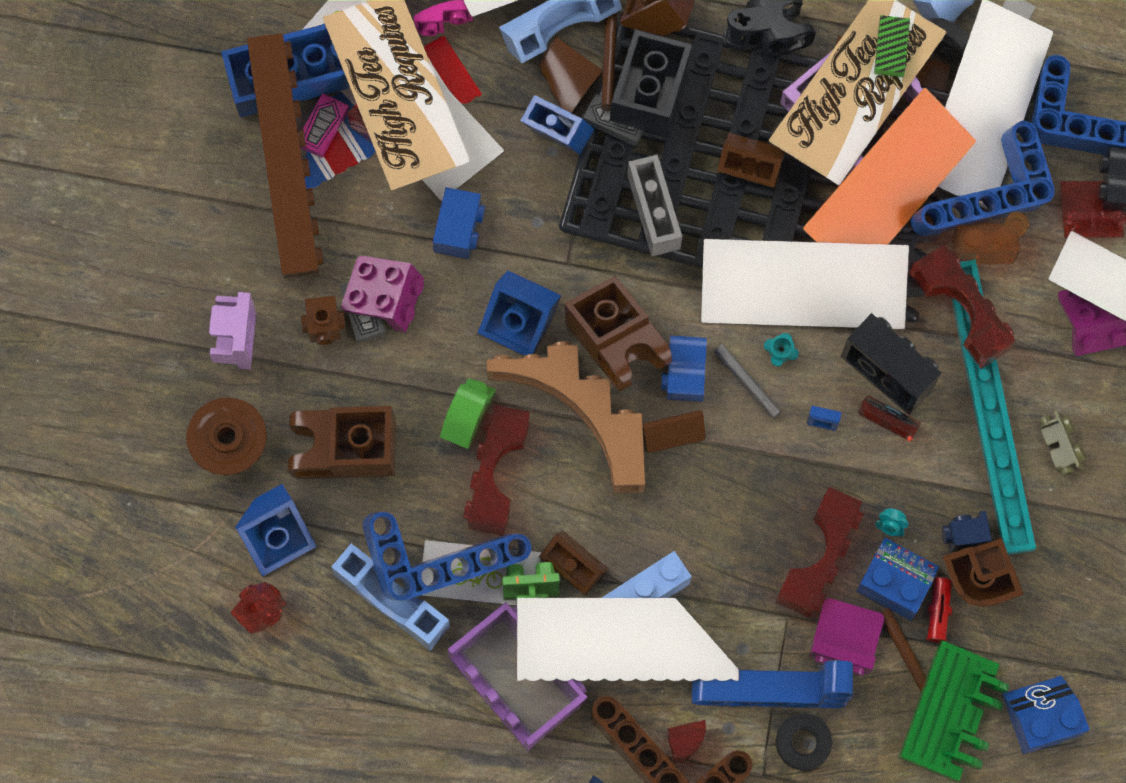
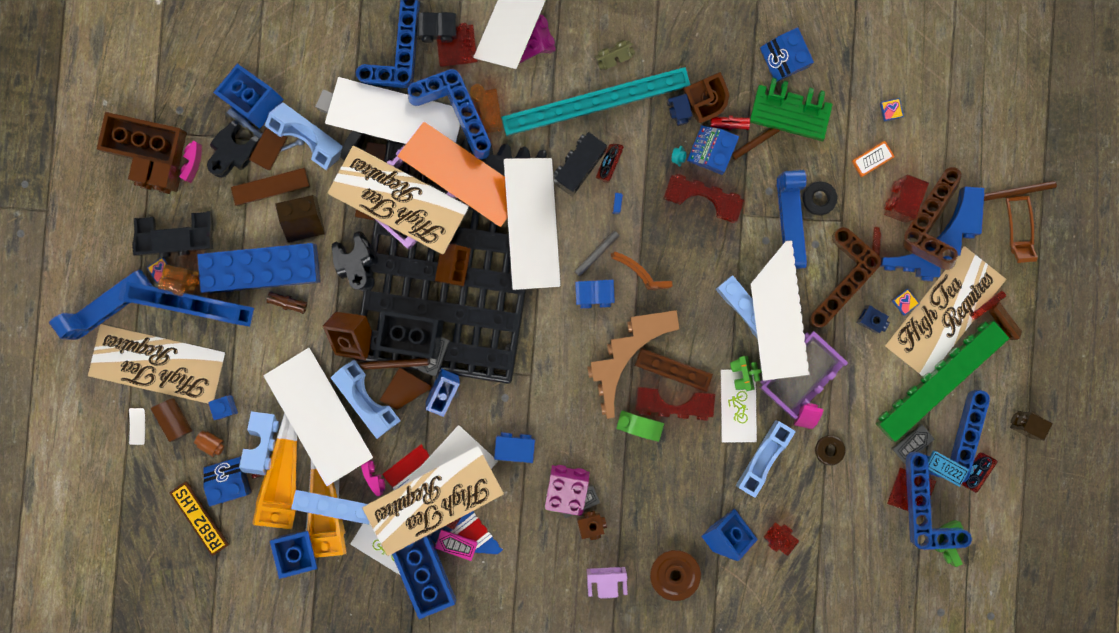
camera: 90 degrees left, 15 degrees up
(283, 155) = (486, 567): reddish brown brick -> none
(339, 444) = (670, 505): reddish brown brick -> none
(389, 692) = (839, 453): none -> dark brown piece
(439, 566) = (743, 430): blue beam -> none
(450, 671) = (808, 416): none -> dark pink slope
(518, 313) = (570, 401): blue slope -> none
(549, 477) = (673, 369): none -> reddish brown tile
(574, 562) = (725, 348): reddish brown slope -> none
(615, 331) = (584, 335): reddish brown brick -> none
(654, 205) = (494, 323): light grey brick -> none
(674, 431) = (636, 296): reddish brown slope -> none
(686, 740) = (829, 268): clear red brick -> none
(691, 451) = (642, 273): none -> dark orange piece
(784, 341) = (574, 229): teal plate -> none
(847, 635) = (755, 178): magenta bracket -> none
(892, 46) = (369, 180): tile -> none
(942, 275) = (554, 105): clear red arch -> none

